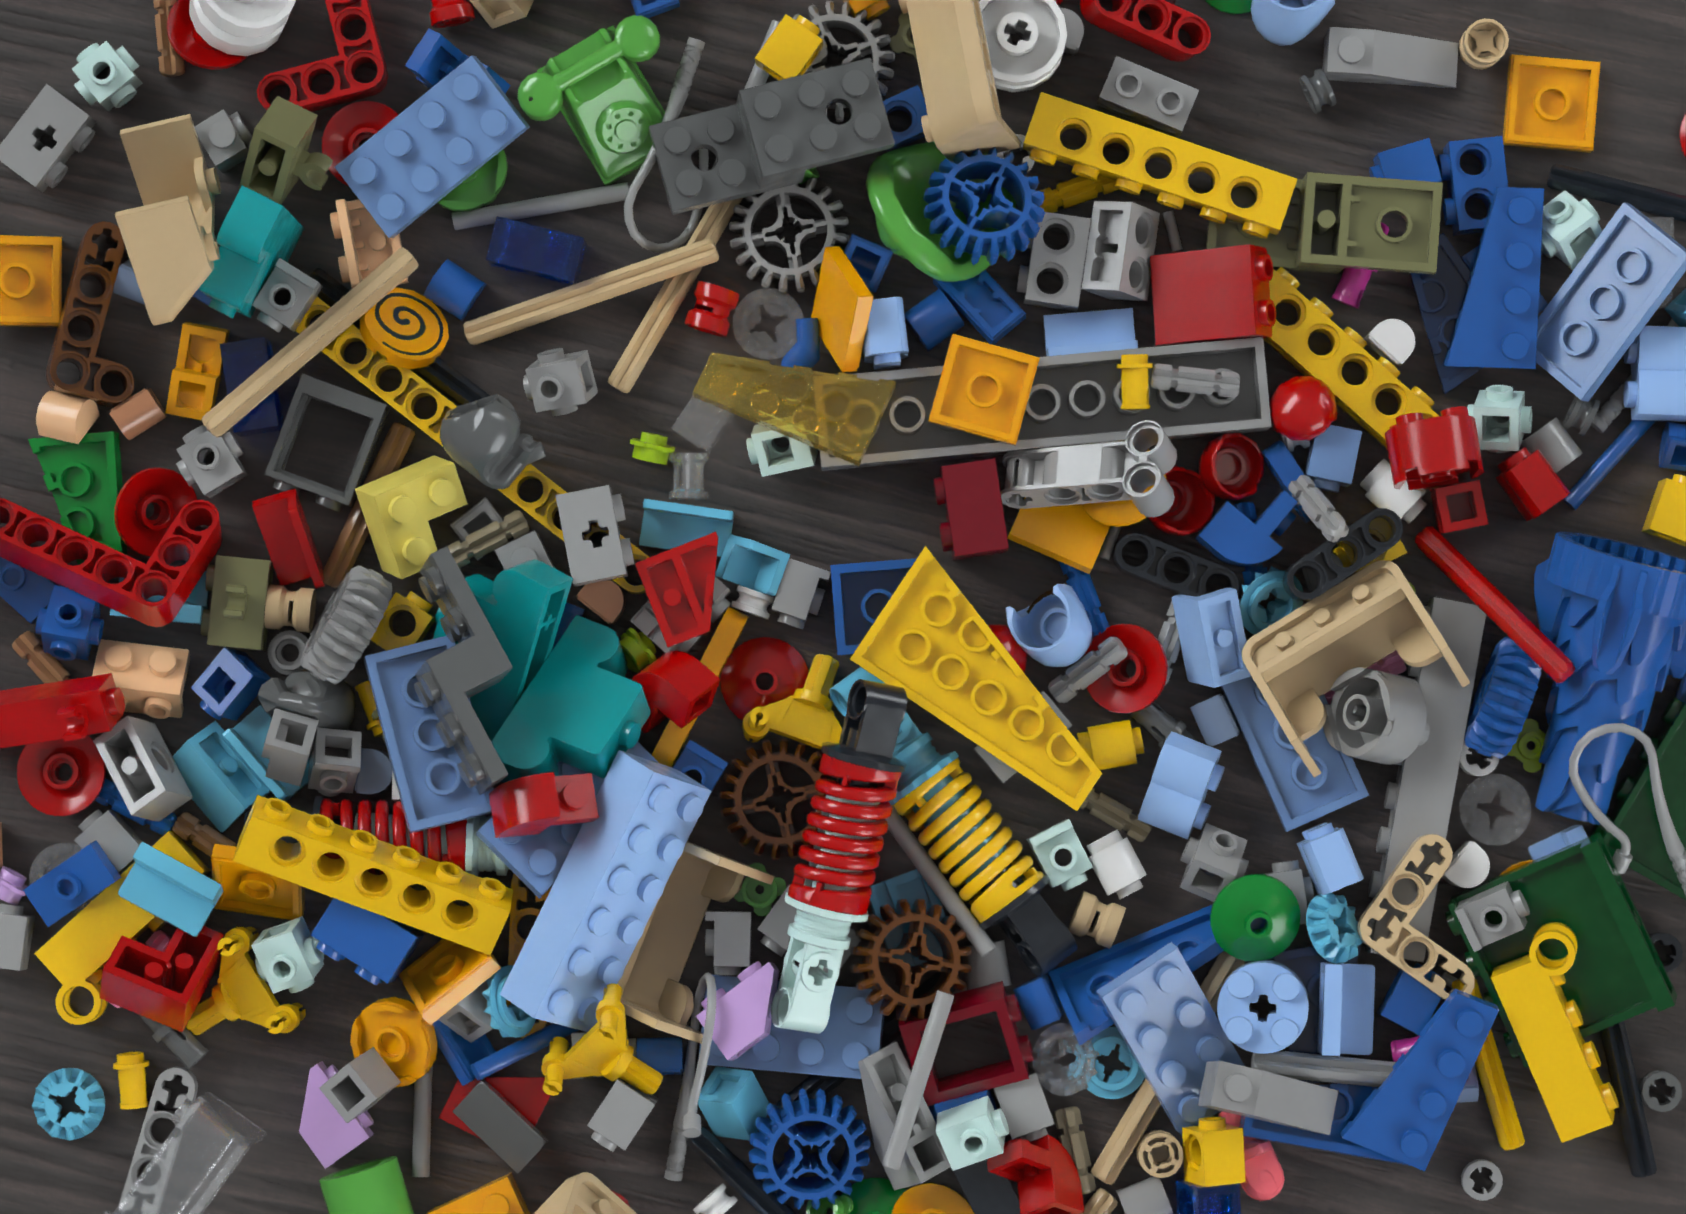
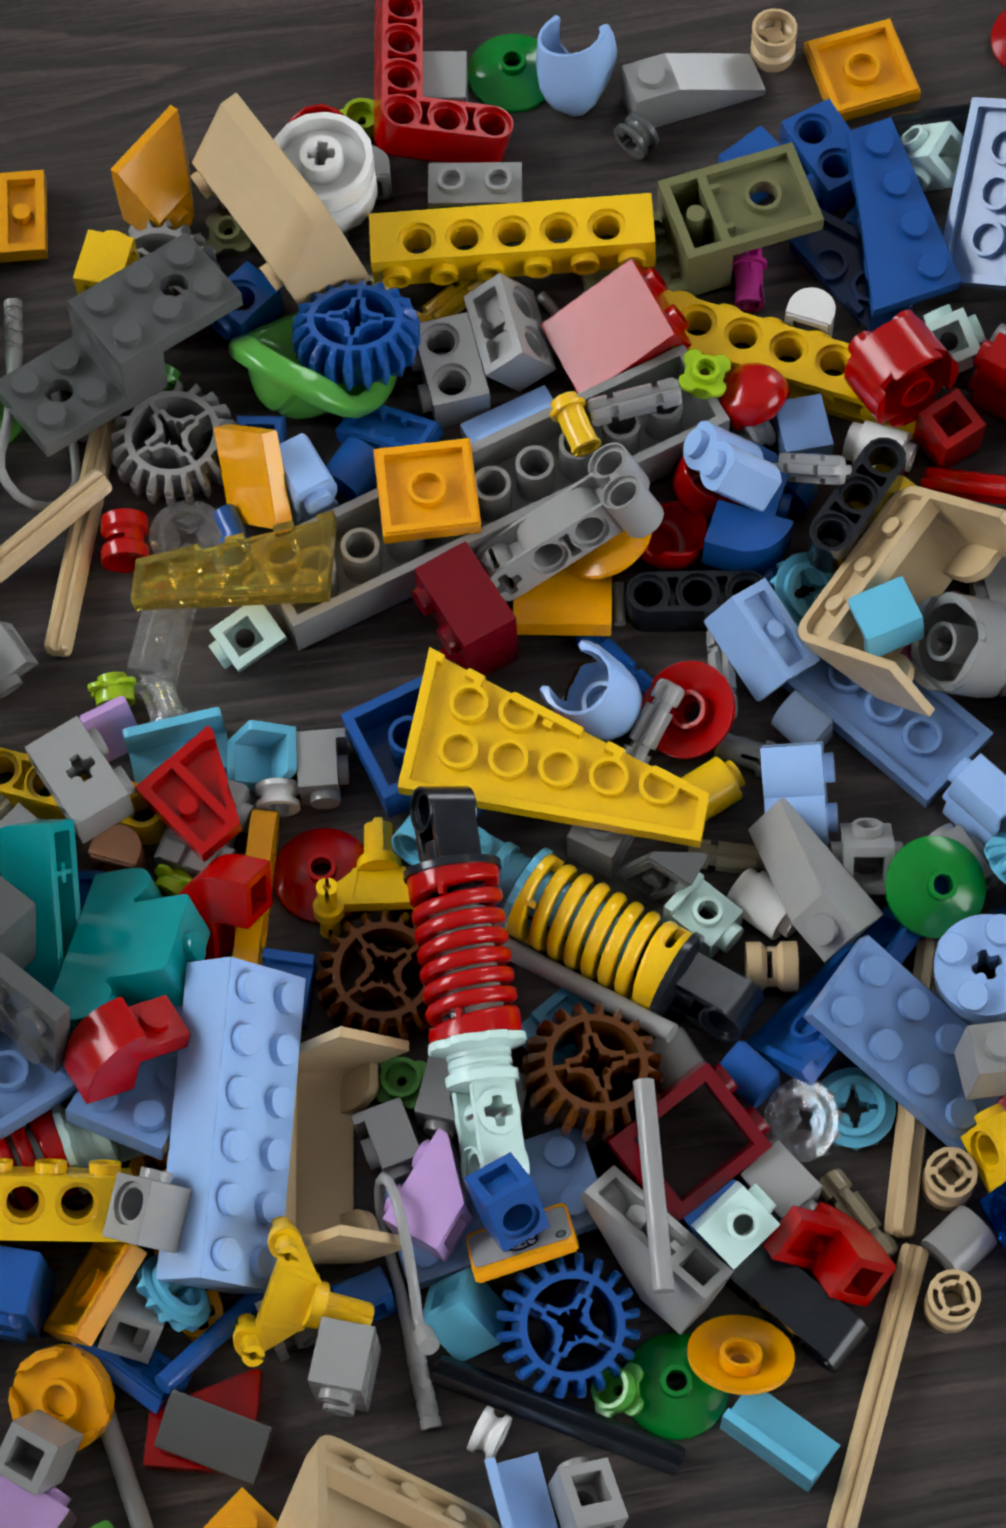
camera: 20 degrees left, 20 degrees down
(511, 945) = (147, 1210): none -> light grey brick
(637, 482) = (110, 721): none -> lavender slope
(797, 1049) = (507, 1202): none -> blue brick
(798, 1077) = (556, 1241): none -> slope
(1042, 810) = (661, 872): none -> dark grey slope
(1156, 874) = (811, 882): none -> light grey slope
(1251, 478) = (731, 466): none -> light blue brick
(1254, 383) = (704, 385): none -> lime plate
(1318, 674) = (887, 617): none -> medium azure panel

